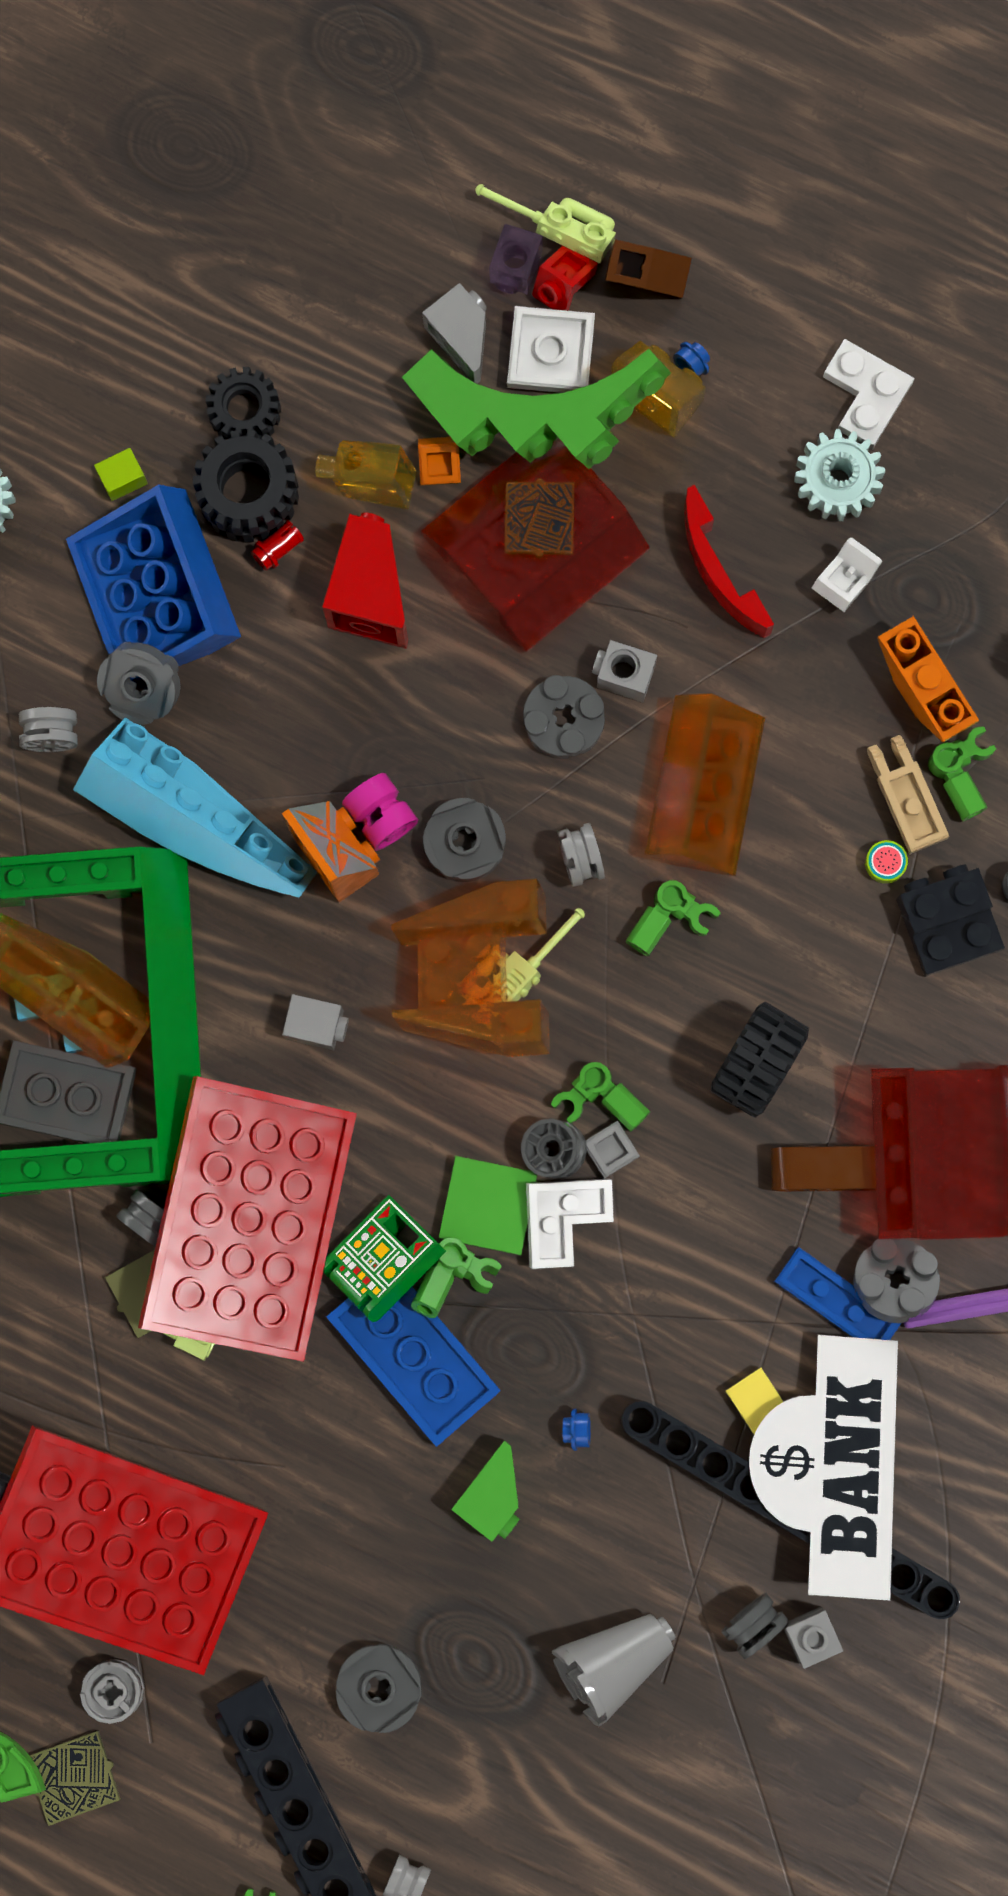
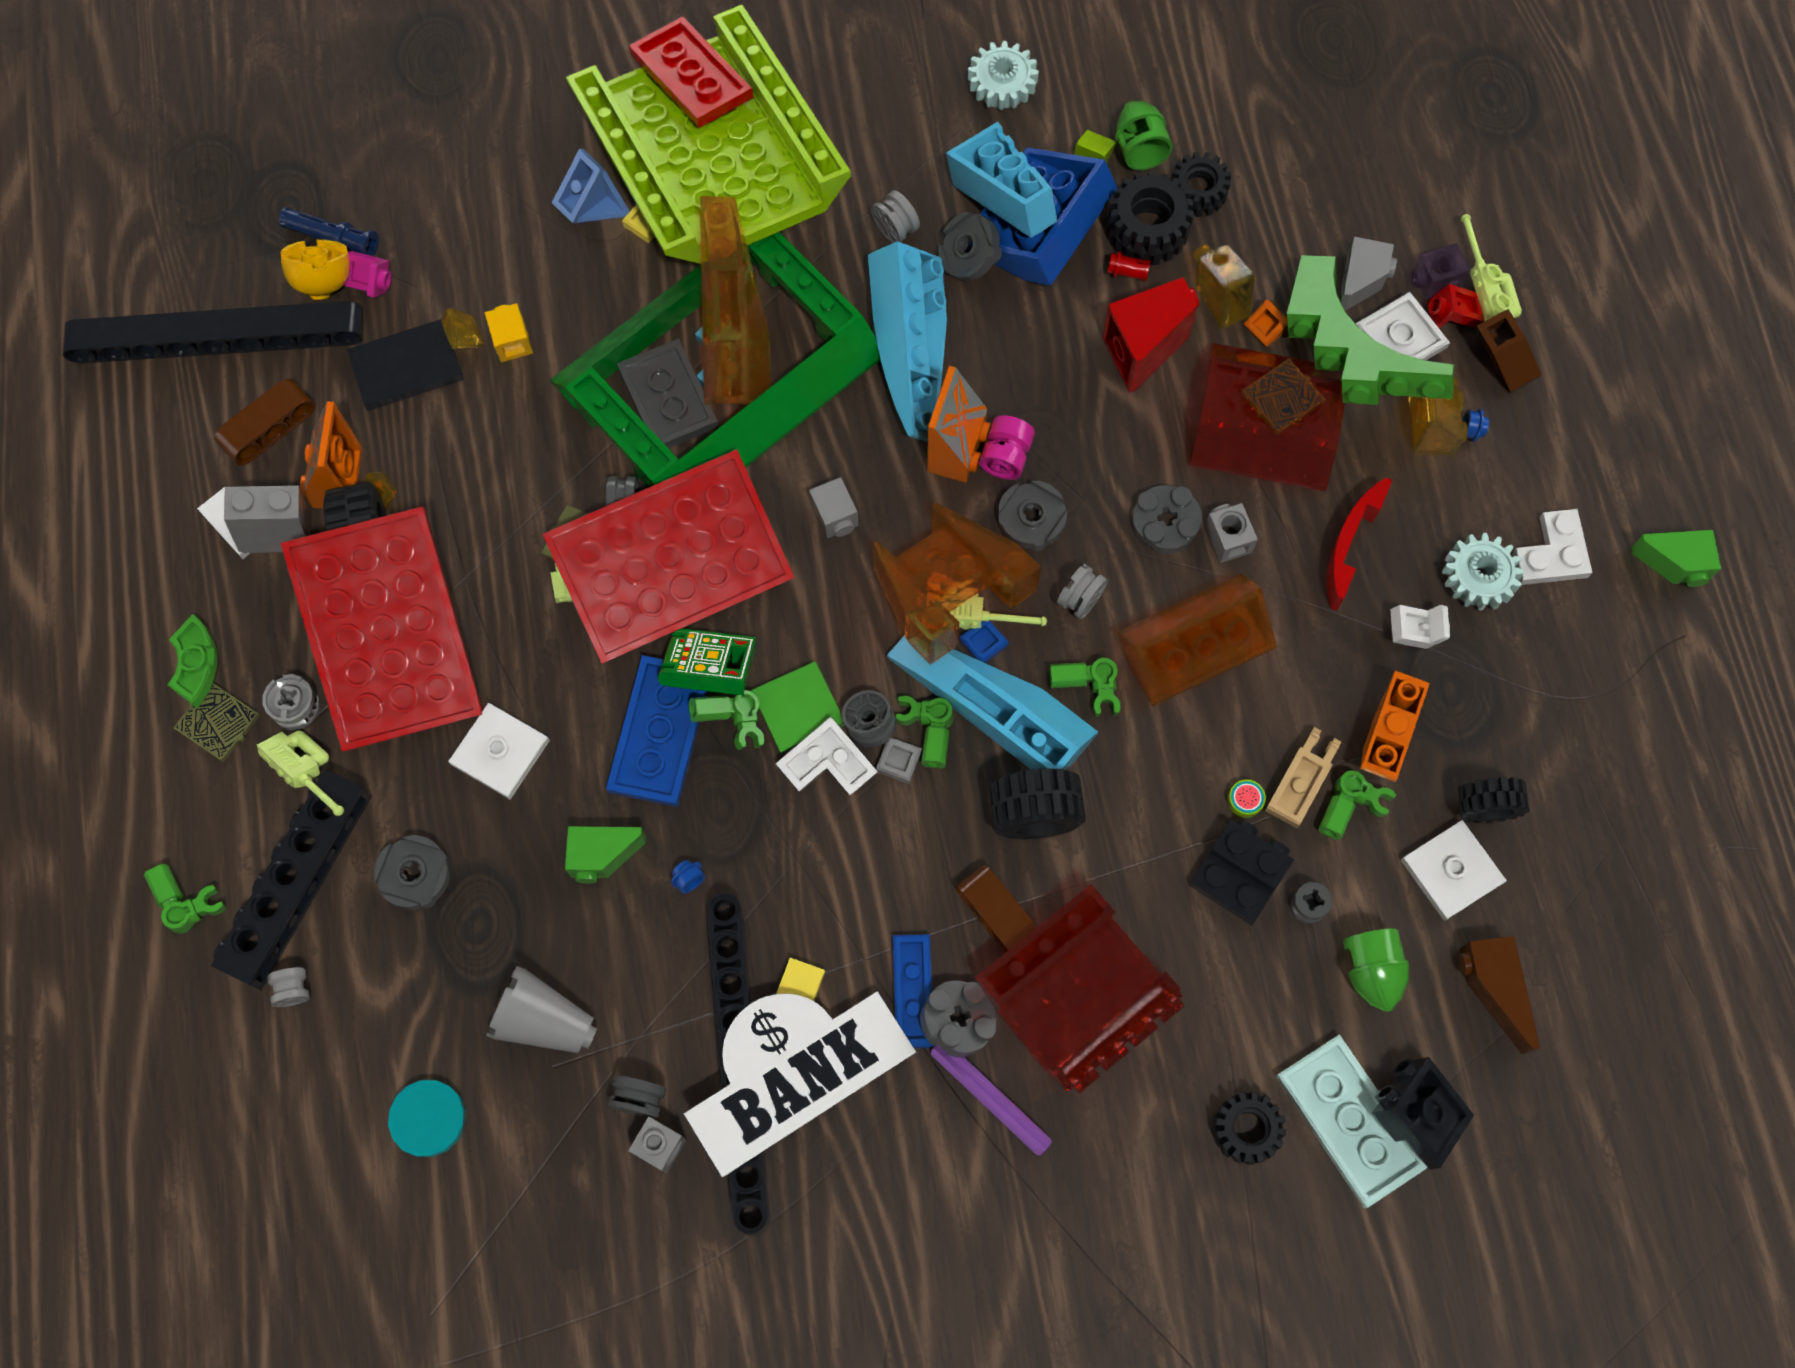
camera: 50 degrees right, 10 degrees down
(97, 598) = (1002, 180): none -> medium azure wedge
(148, 419) = (1142, 136): none -> bright green helmet
(194, 1733) = (296, 770): none -> yellowish green piece
(315, 1521) = (499, 751): none -> white plate
(556, 982) = (984, 642): none -> blue tile
(627, 1833) = (427, 1118): none -> teal tile
(639, 1013) = (1002, 706): none -> medium azure wedge
(961, 287) = (1680, 556): none -> bright green slope

